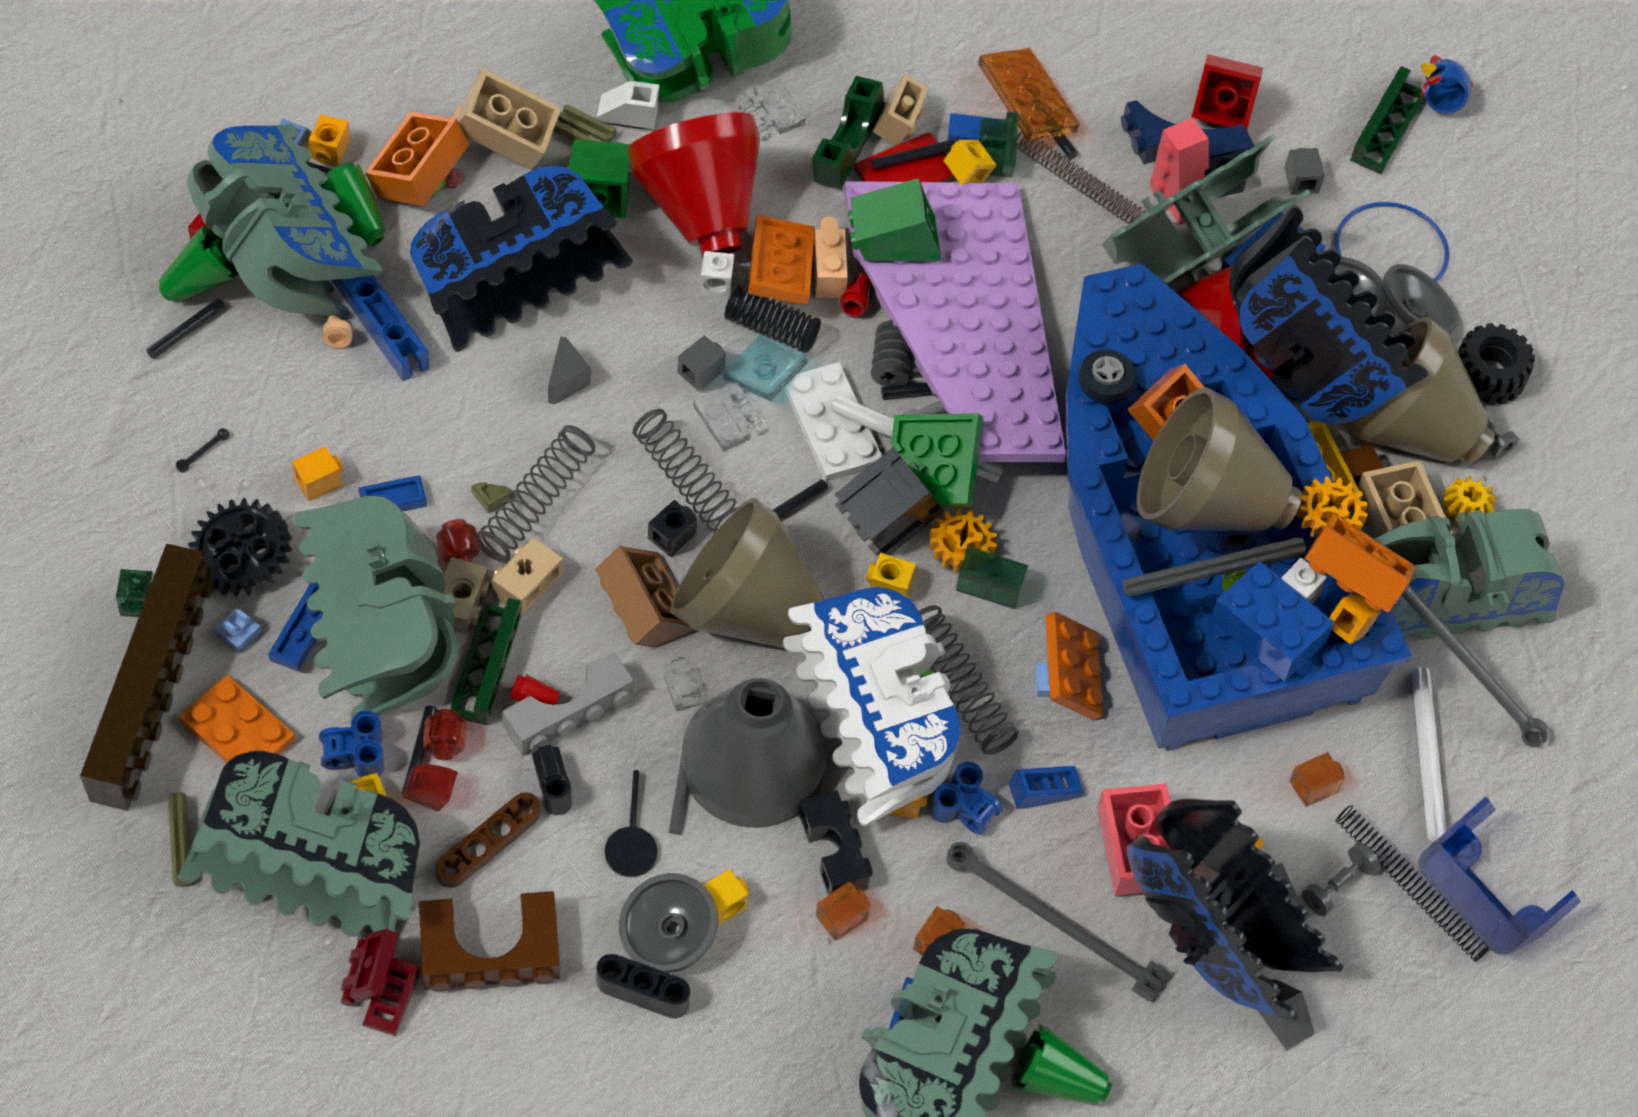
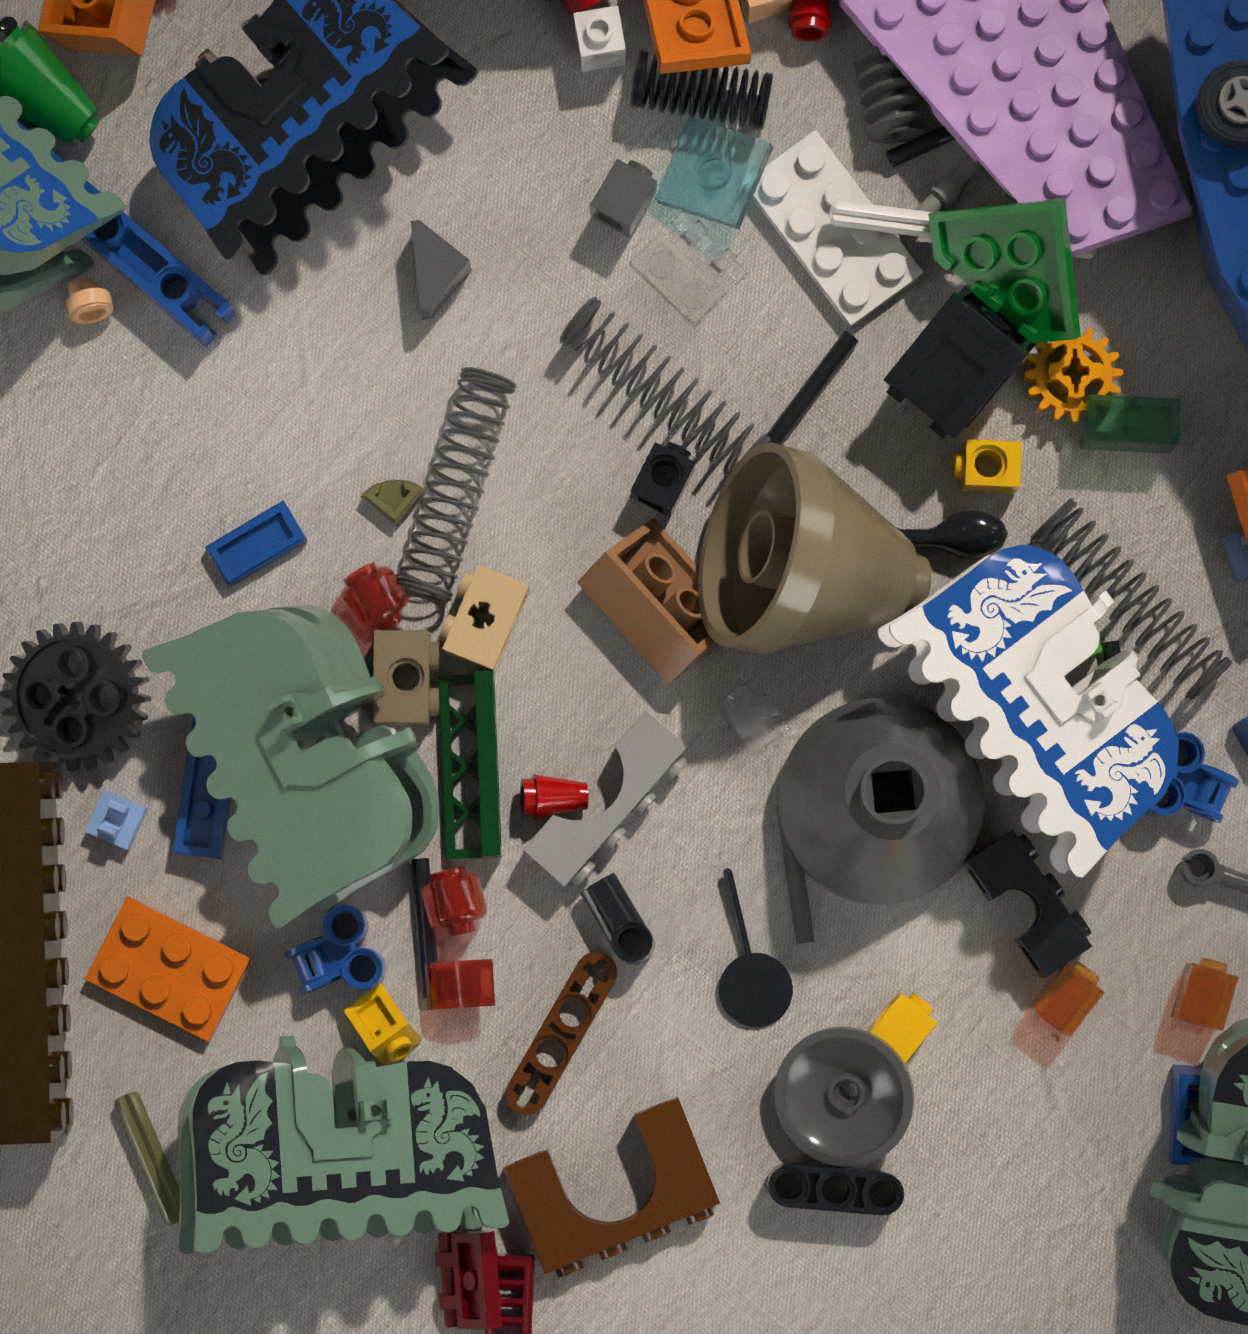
camera: 10 degrees left, 25 degrees up
(317, 473) = (141, 543): light orange brick -> none

